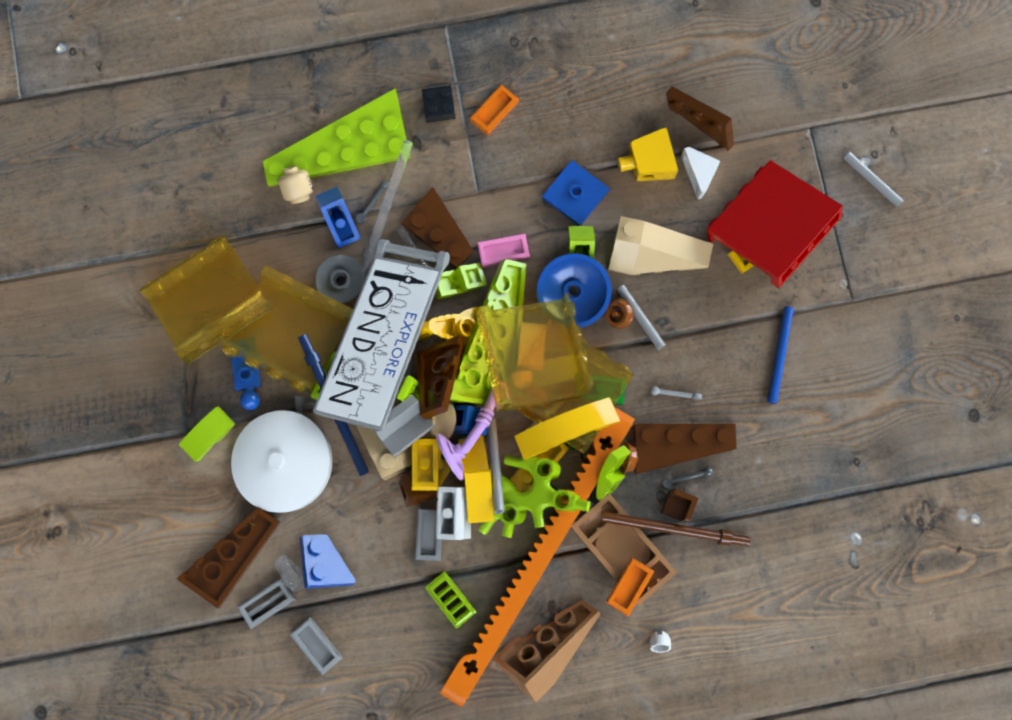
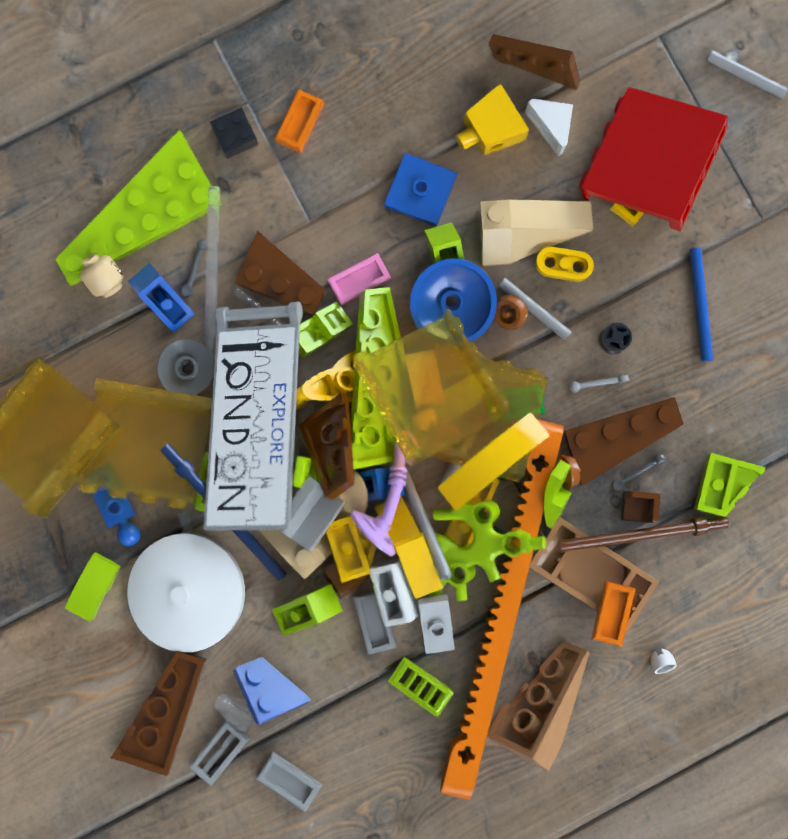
camera: 15 degrees left, 5 degrees up
(376, 506) = (307, 610): none -> lime slope
(479, 551) = (436, 624): none -> light grey plate
(676, 286) = (563, 264): none -> yellow plate
(703, 357) = (620, 334): none -> black wheel
(756, 508) = (724, 483): none -> lime wing

